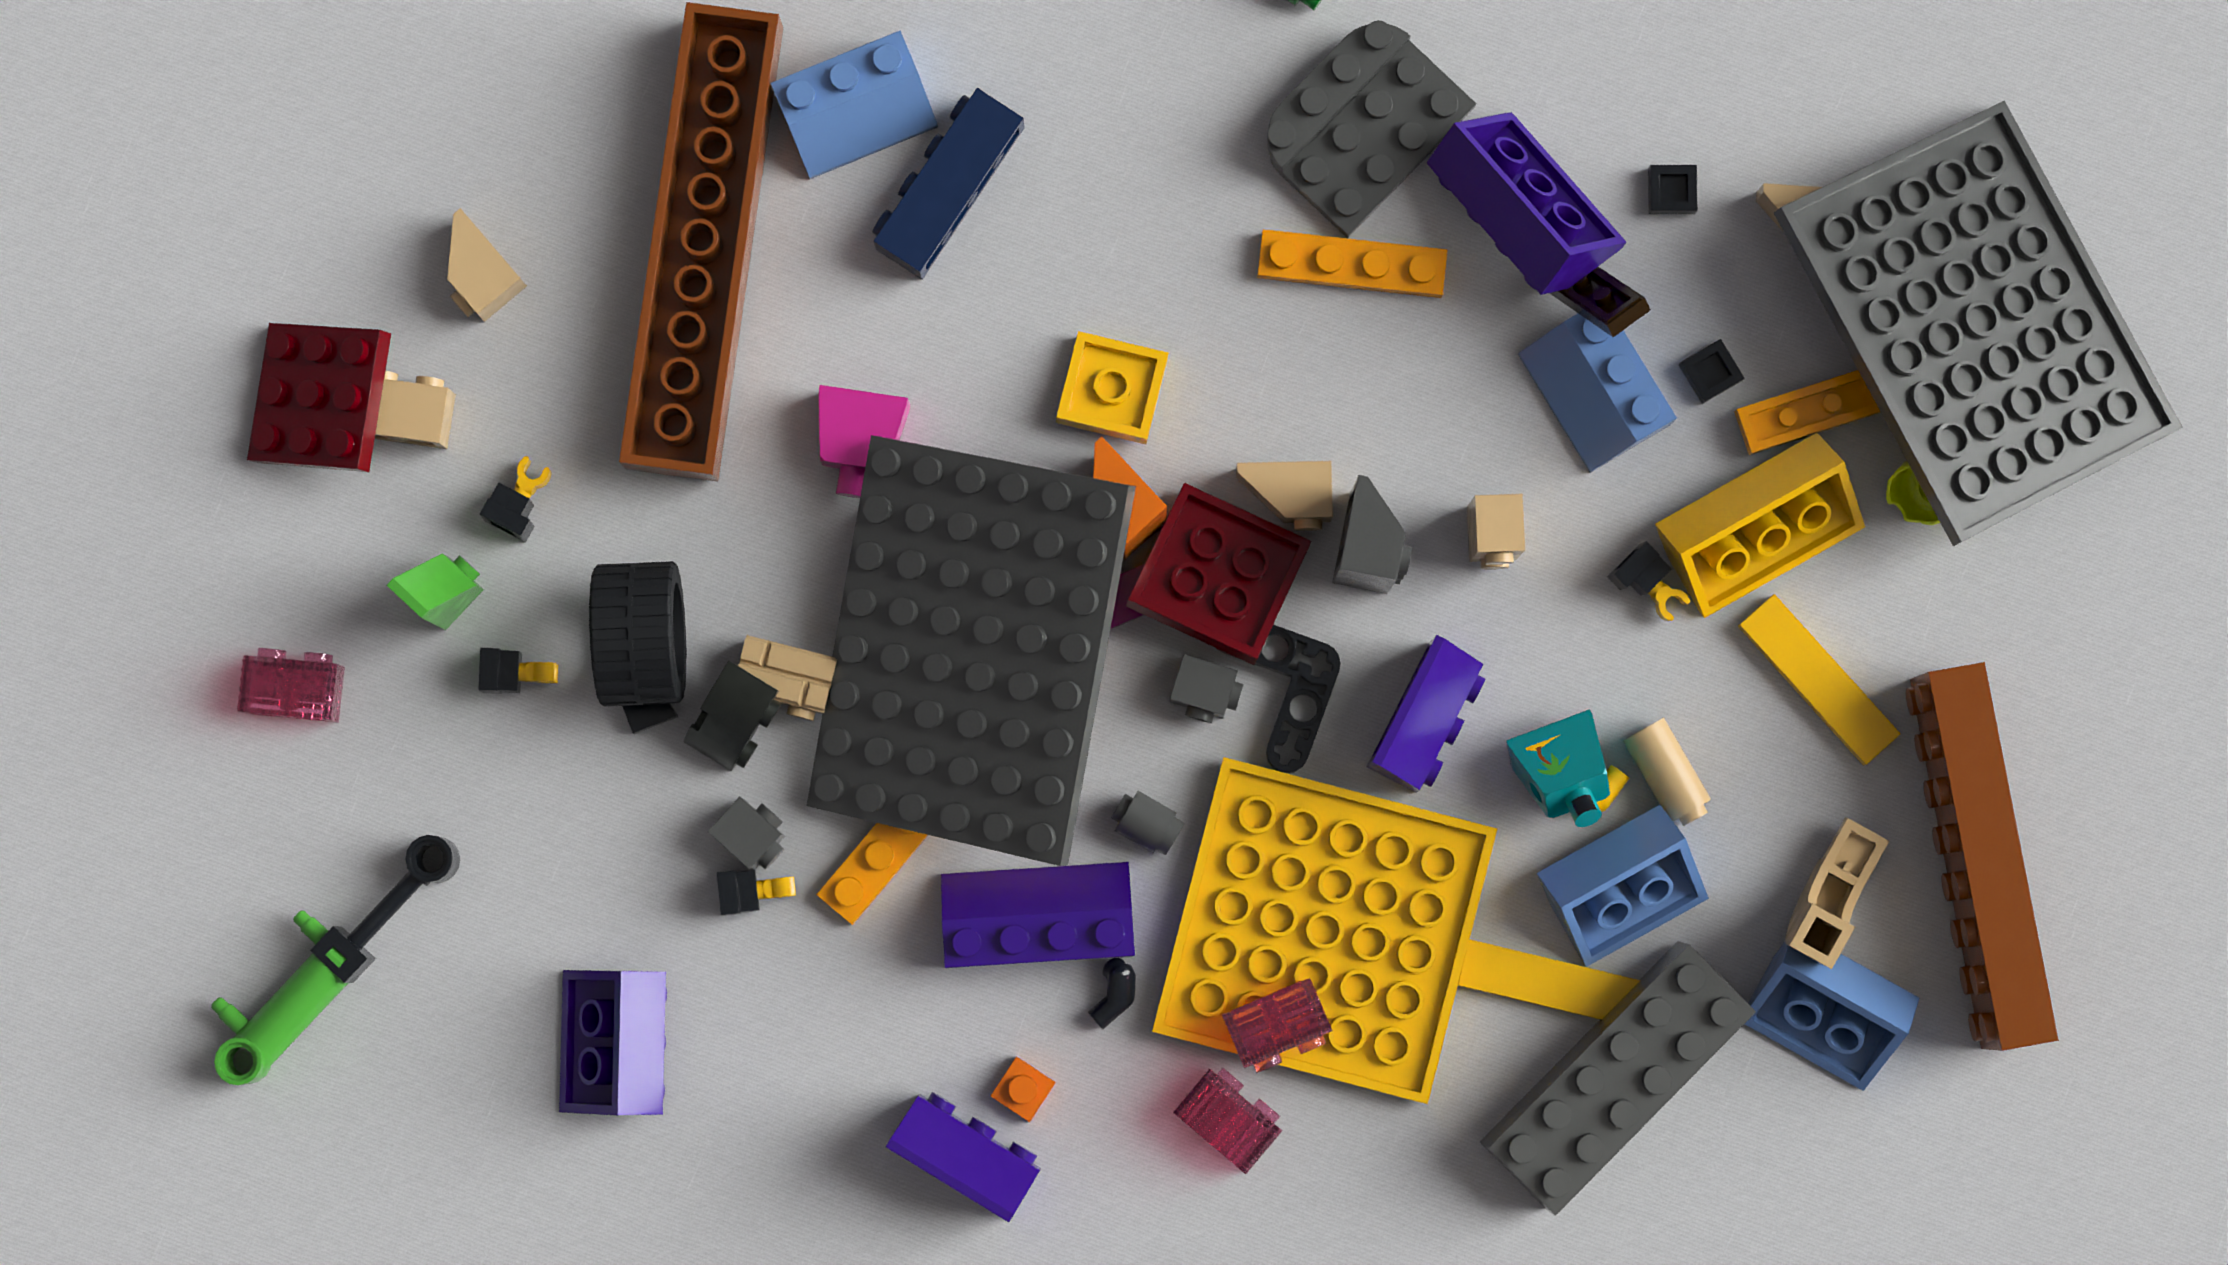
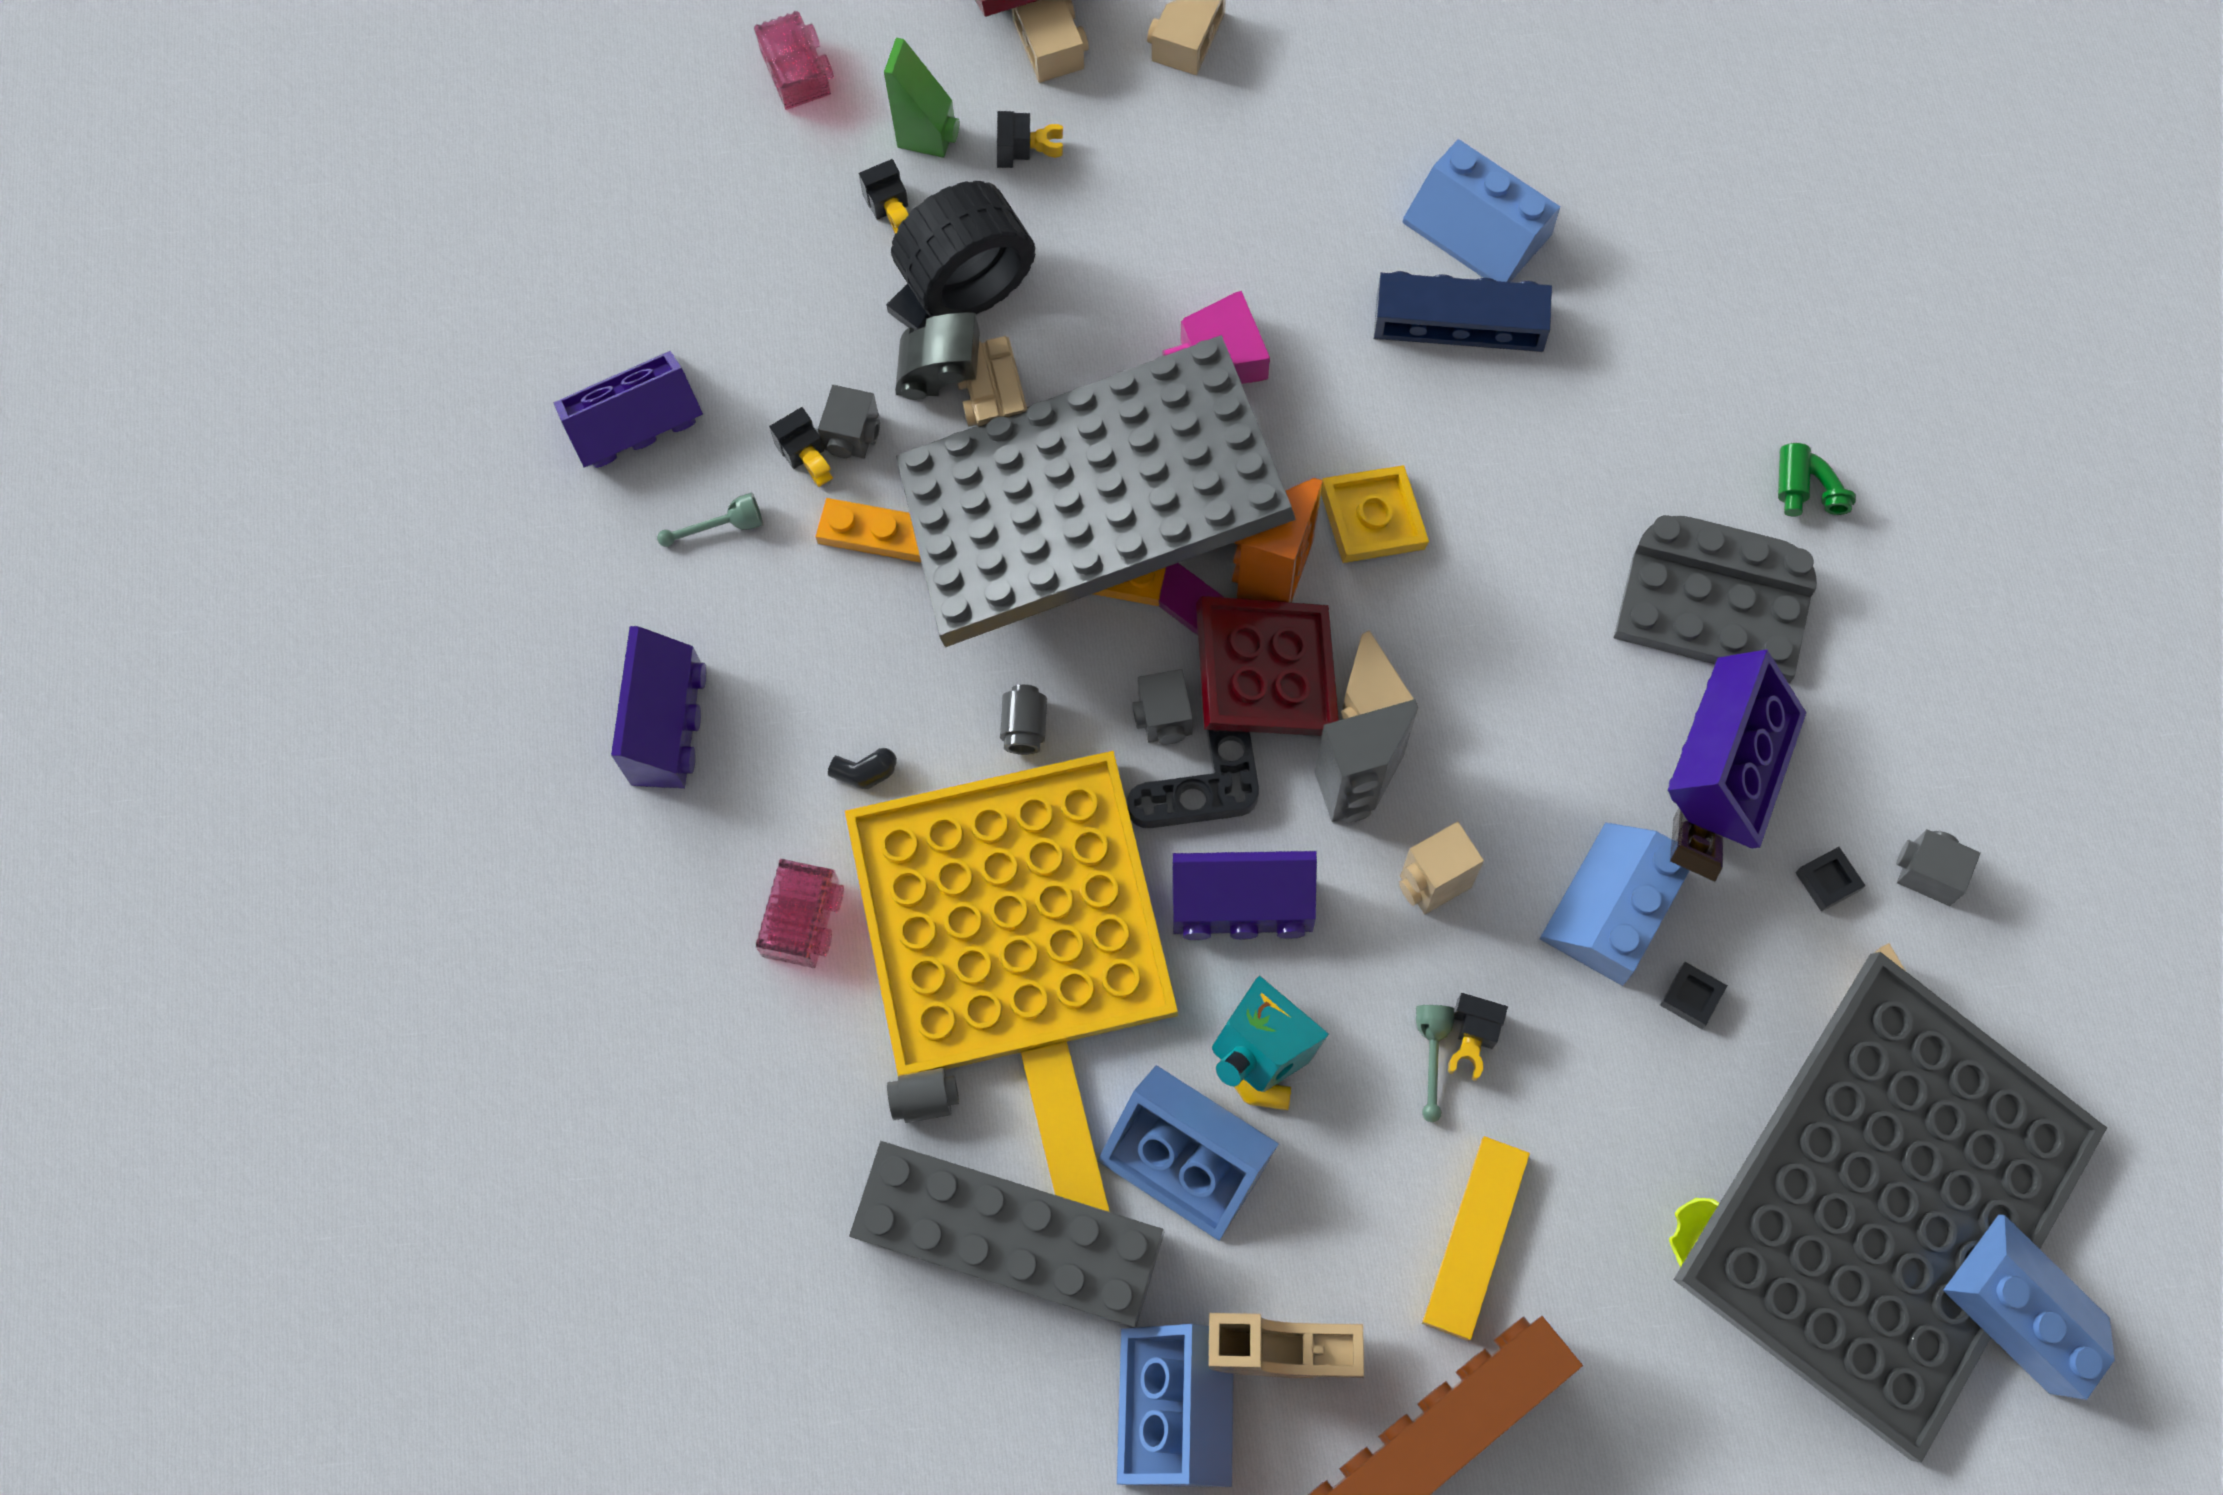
camera: 65 degrees right, 15 degrees down
(334, 963) = (594, 187): bright green piece -> none
(701, 242) = (1300, 159): dark orange brick -> none
(789, 983) = (741, 513): none -> sand green hinge
(1023, 1089) = (744, 738): orange plate -> none
(1037, 915) = (896, 673): dark purple slope -> none
(1277, 1024) = (901, 903): clear pink brick -> none
(1352, 263) = (1595, 650): light orange plate -> none
(1454, 1090) = (922, 1095): none -> dark grey brick
(1622, 610) = (1434, 1024): none -> sand green hinge
(1668, 772) = (1313, 1139): tan brick -> none
(1712, 92) = (1937, 866): none -> dark grey brick
(1761, 524) = (1585, 1108): yellow slope -> none
(1805, 412) = (1708, 1093): light orange plate -> none
(2117, 259) = (2034, 1311): none -> medium blue slope

